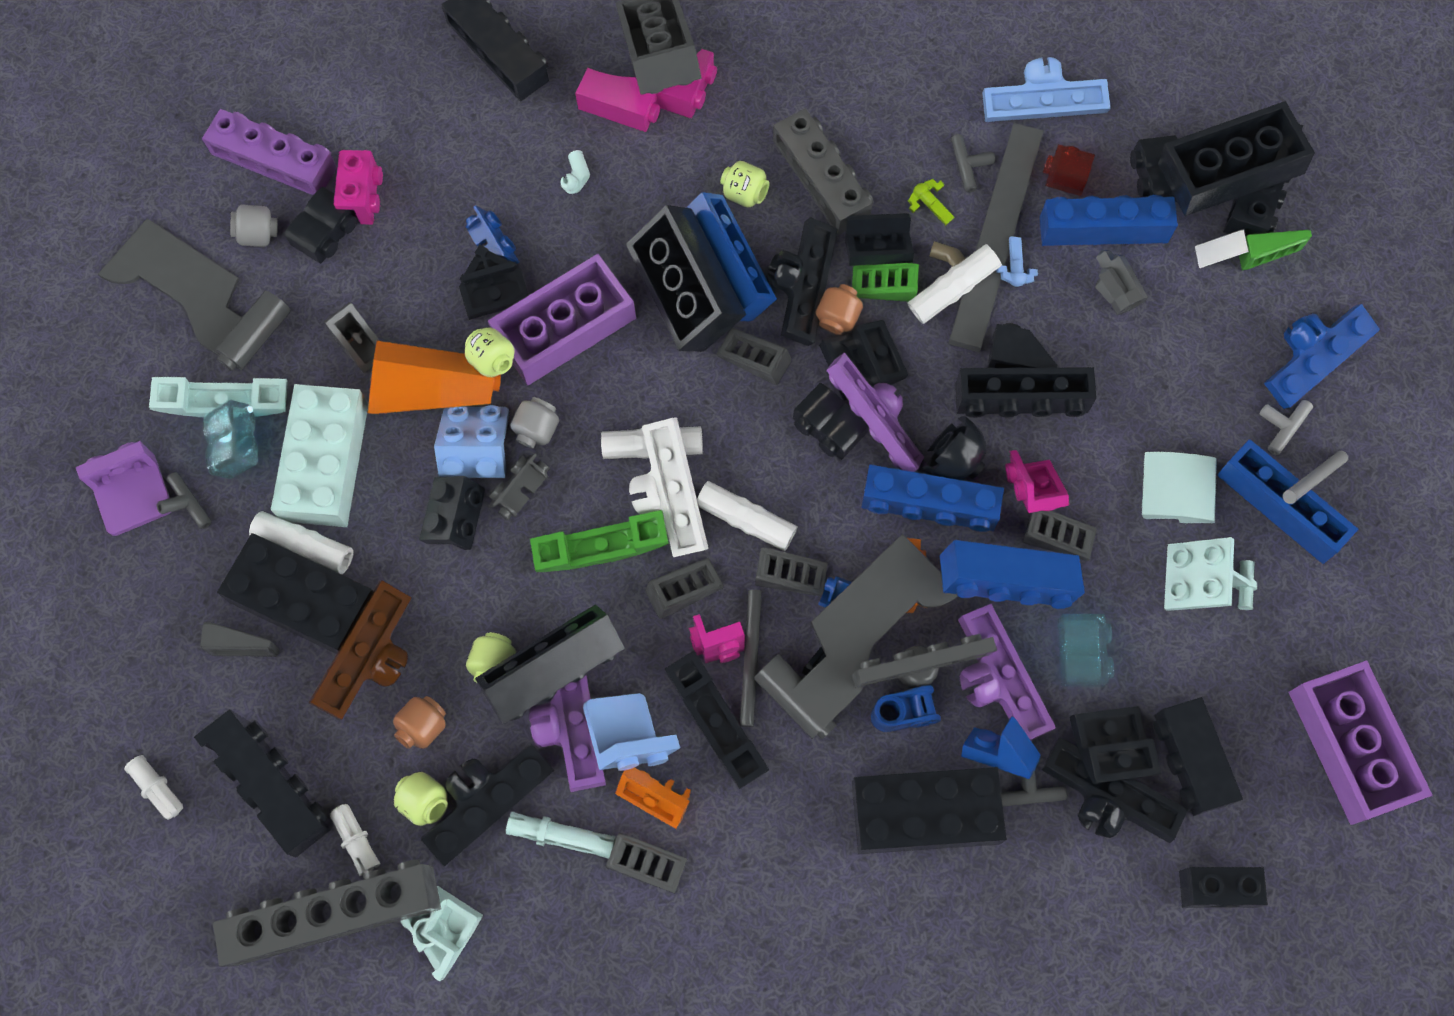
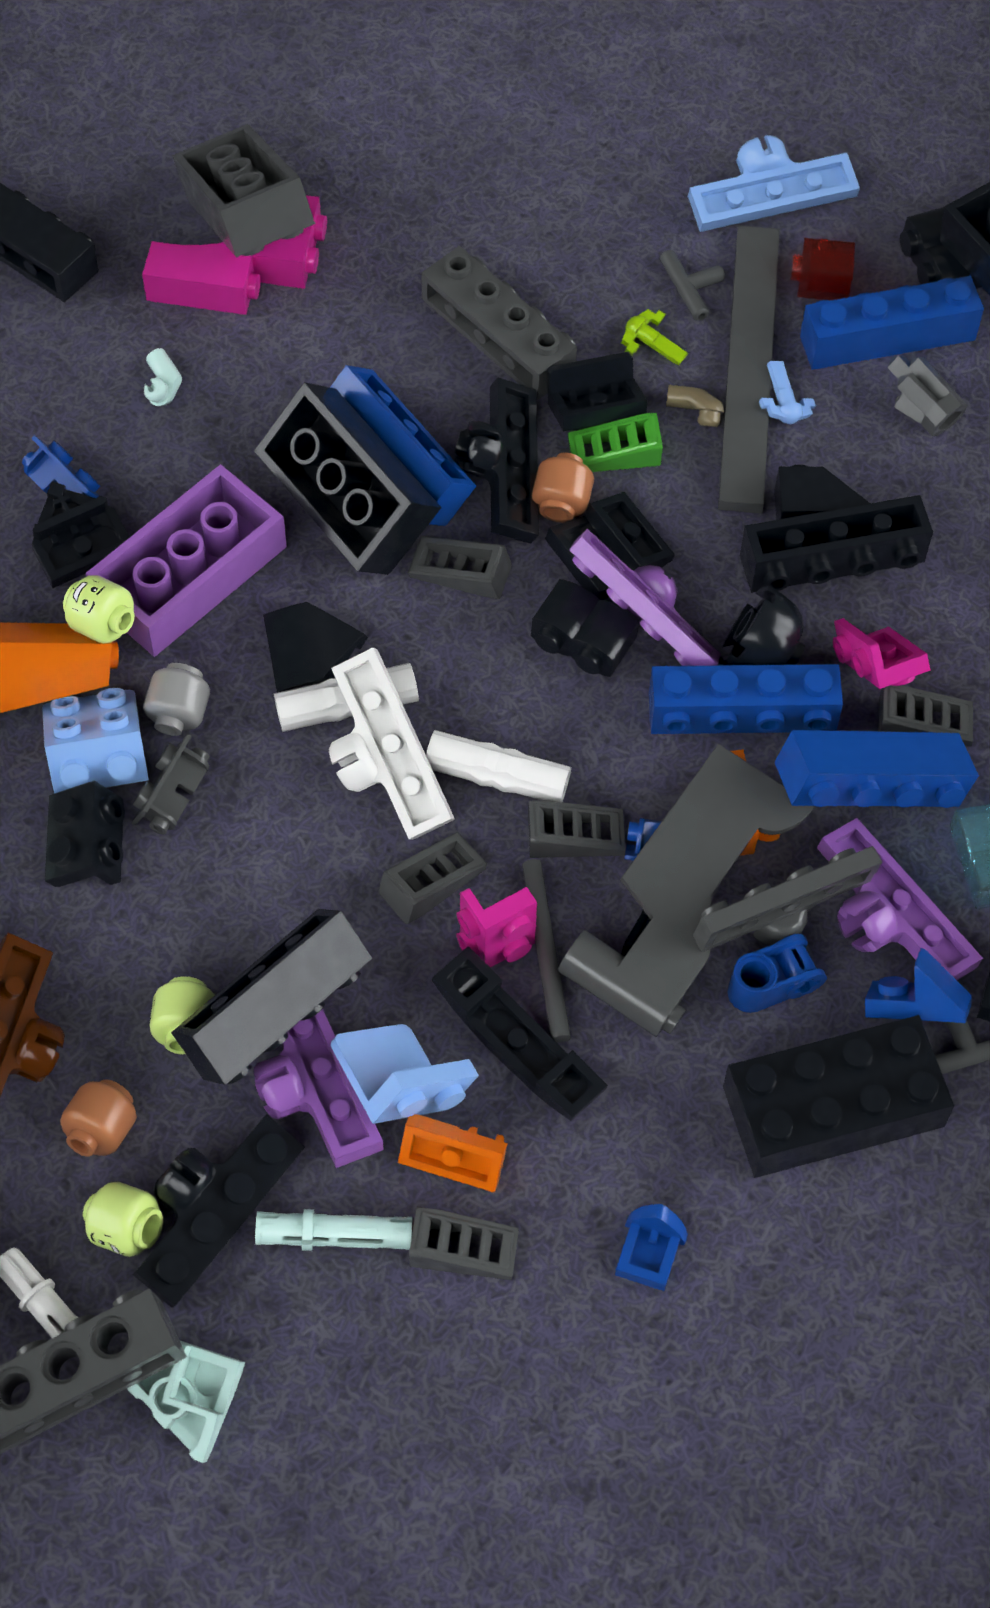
camera: 15 degrees left, 10 degrees down
(601, 544) = (304, 842): bright green slope -> none
(634, 398) = (307, 644): none -> black slope
(744, 184) = (398, 353): yellowish green head -> none
(773, 892) = (651, 1245): none -> blue tile
(955, 283) = (709, 429): white axle -> none

